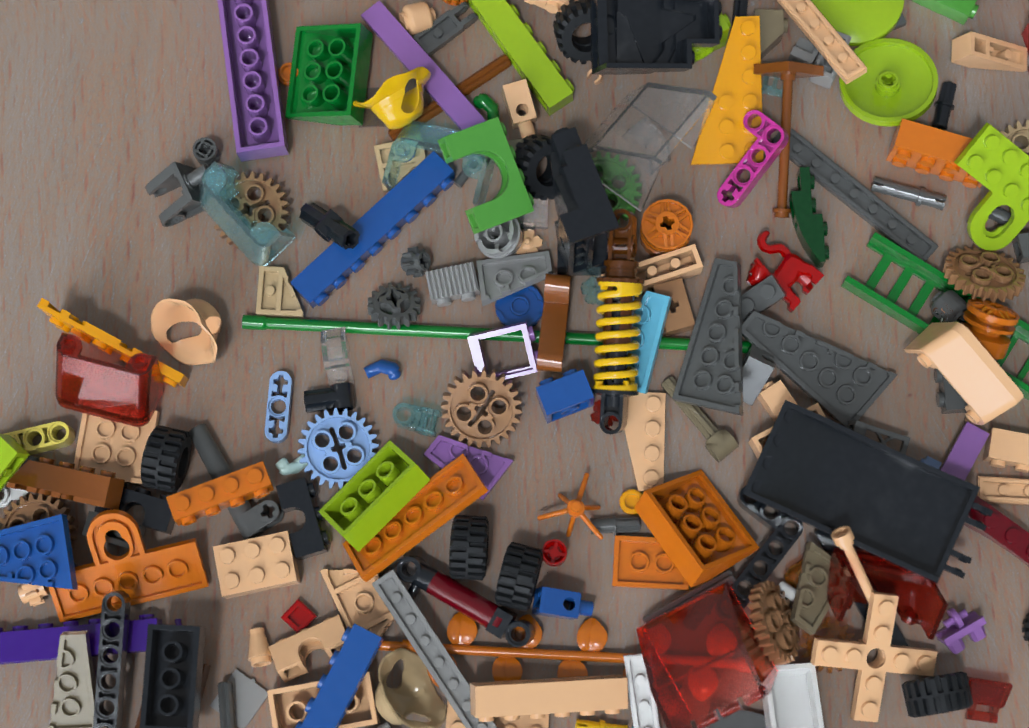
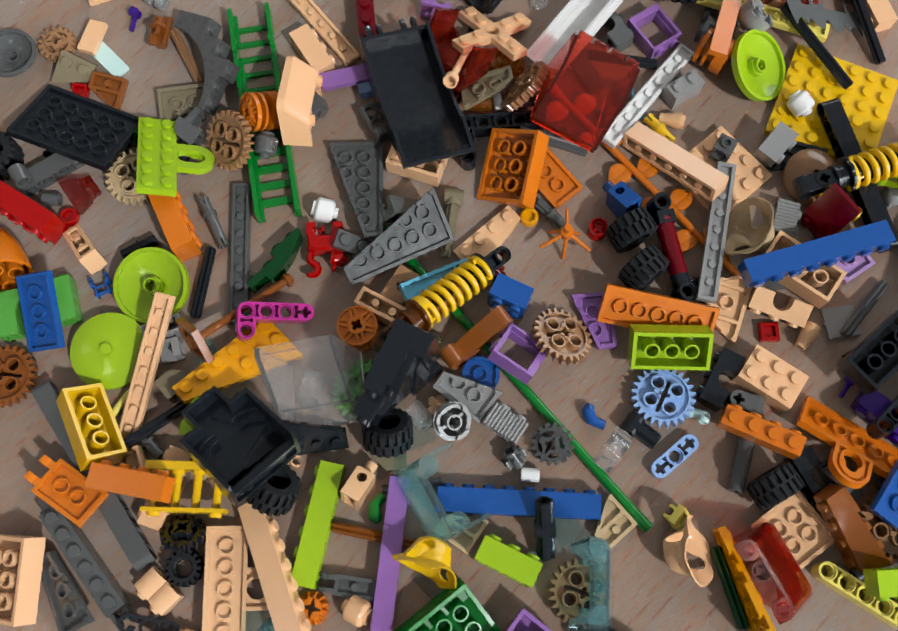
camera: 140 degrees left, 5 degrees down
(132, 341) = (730, 588): none -> dark green axle
(226, 354) = (678, 517): none -> light yellow tile
(334, 171) = (508, 560): none -> lime brick
(387, 264) = (529, 474): none -> white hinge
(418, 419) = (599, 366): clear light blue piece -> none
(490, 140) = (427, 423): bright green arch -> none
(603, 99) = (319, 438): none -> black wing
(773, 398) = (402, 186): light nougat brick -> none
(823, 307) = (324, 210): none -> white head
(852, 135) = (203, 282): none -> black axle
(932, 48) = (96, 288): none -> blue piece

